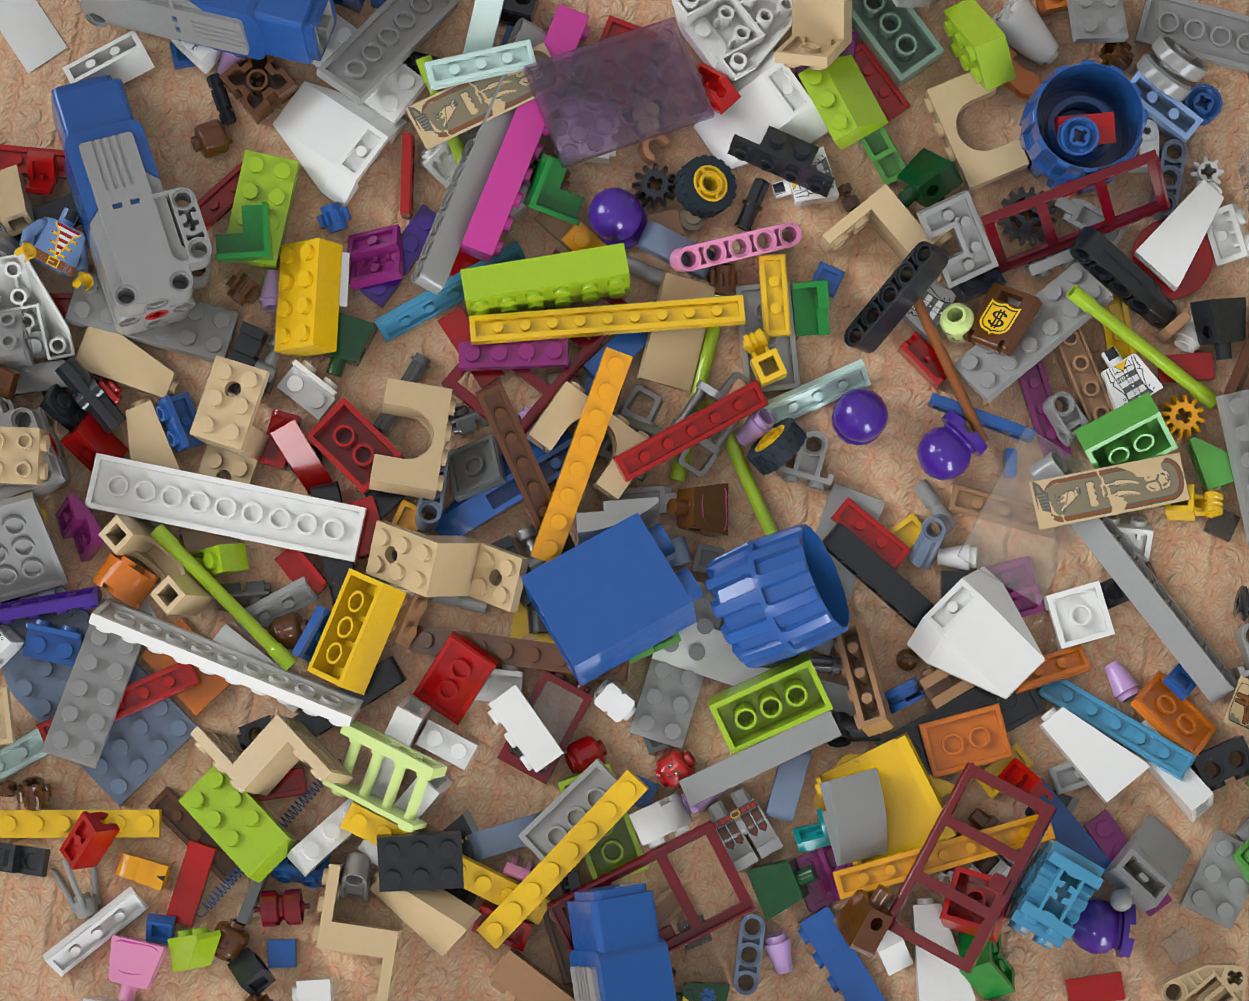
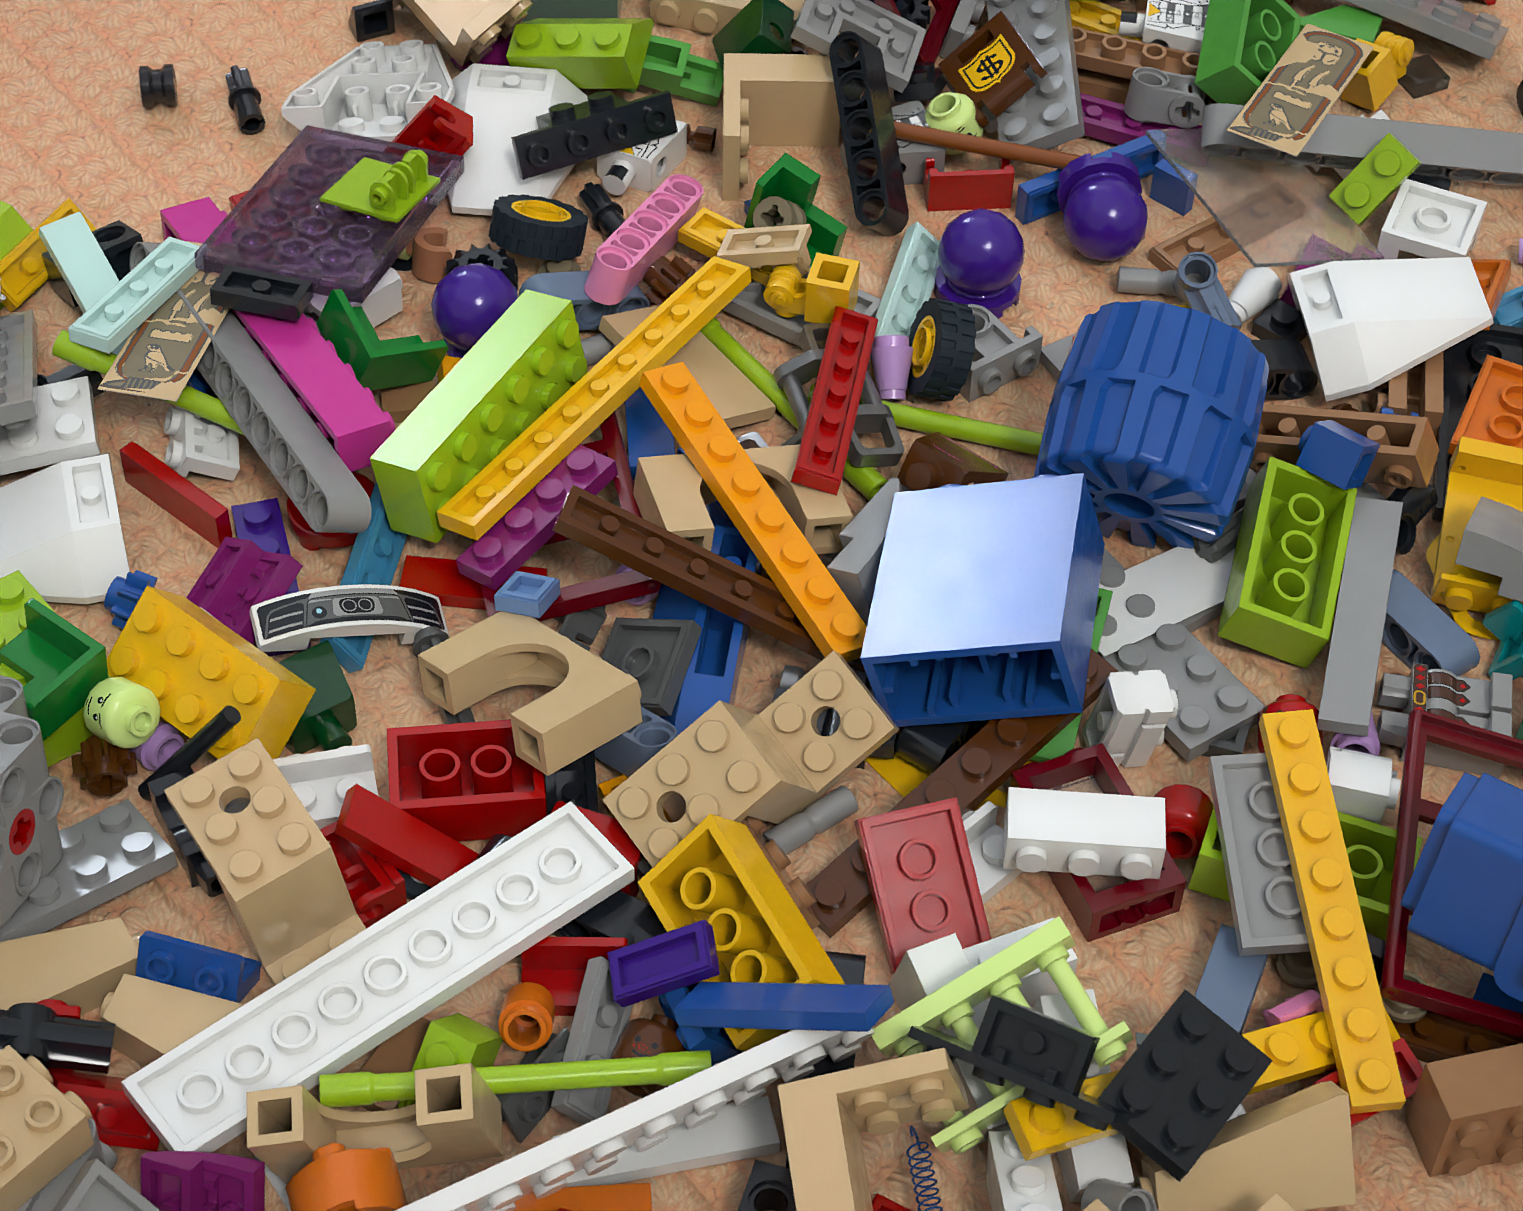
camera: 55 degrees left, 35 degrees down
(261, 281) = (122, 712): none -> yellowish green head
(262, 572) = (526, 1016): none -> orange brick
(266, 327) = (195, 746): none -> black bar
(316, 613) = (663, 963): none -> dark purple tile
(318, 685) = (784, 1006): none -> blue tile
(366, 800) = (1034, 1053): none -> black bracket
(396, 321) = (343, 611): none -> slope
(461, 392) = (527, 594): none -> medium blue tile
(525, 120) = (261, 292): none -> black plate
(644, 106) = (383, 188): none -> lime hinge
(767, 315) = (768, 246): none -> tan plate
(798, 303) = (769, 207): none -> dark tan wheel
(837, 688) = (1336, 454): none -> blue brick
(1084, 567) = (1375, 179): none -> lime plate

